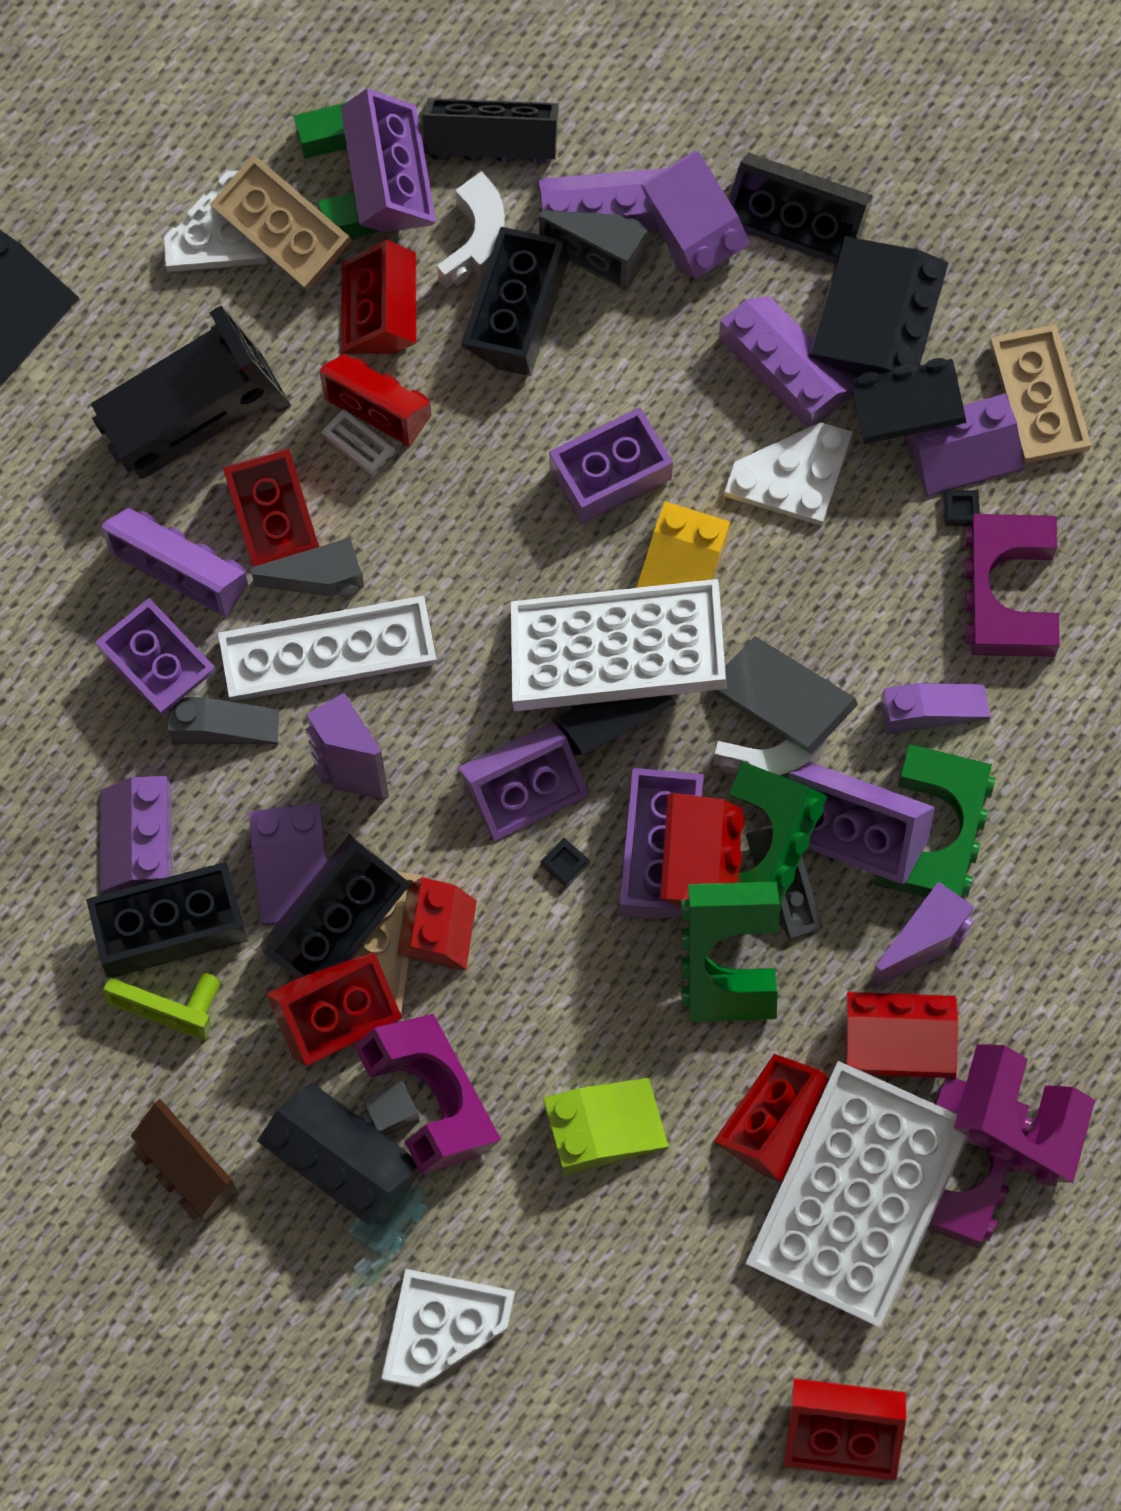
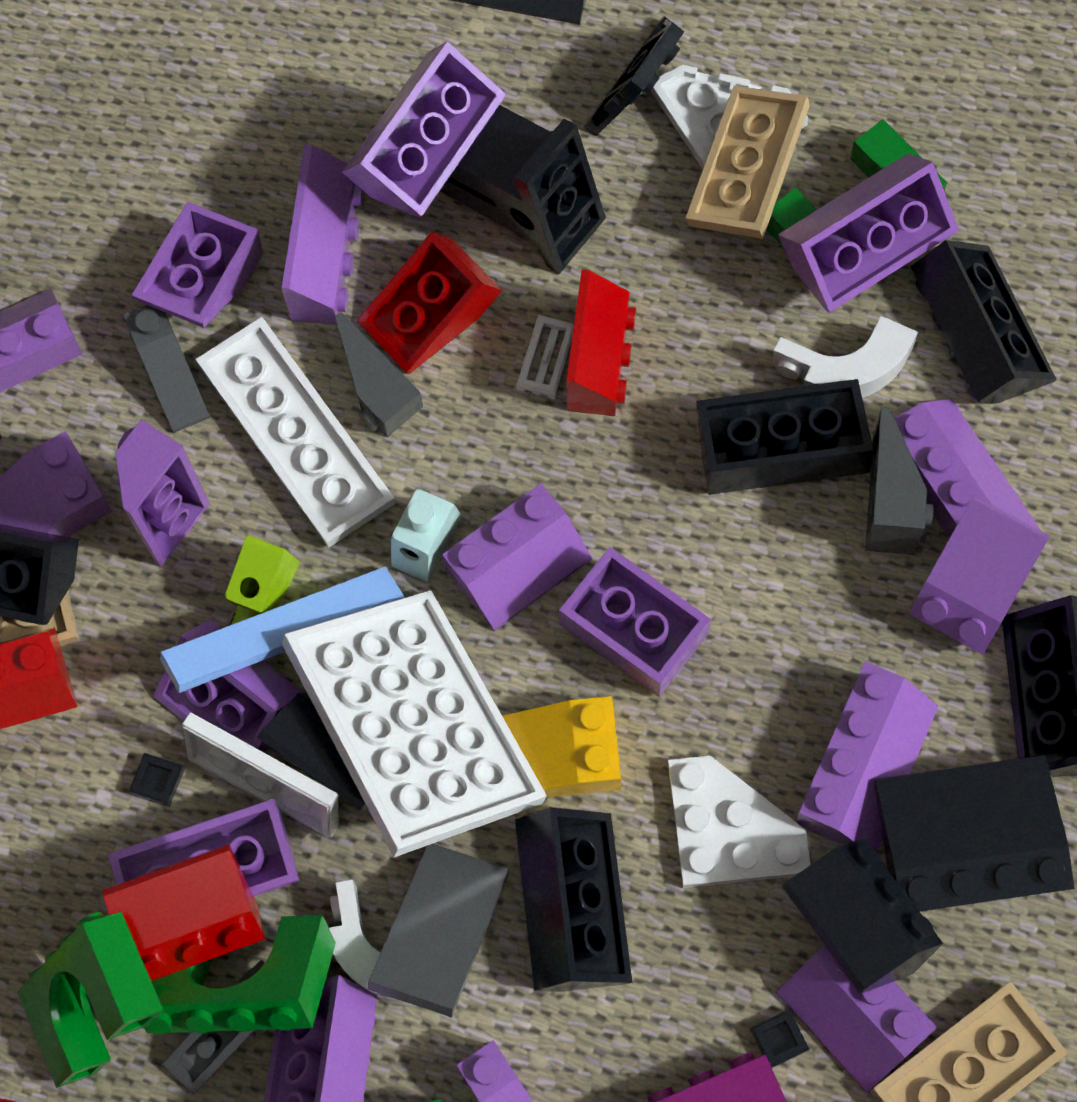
camera: 70 degrees right, 0 degrees up
(147, 427) = (425, 131): none -> medium lavender slope
(156, 266) = (639, 74): none -> black wing
(378, 300) = (717, 303): red slope -> none
(443, 705) = (260, 567): none -> lime torso
(462, 581) = (426, 531): none -> light aqua torso
(497, 713) = (262, 635): none -> light blue tile
(515, 528) = (516, 557): none -> medium lavender slope
(605, 774) = (261, 775): none -> white tile
(799, 601) = (572, 900): none -> black slope

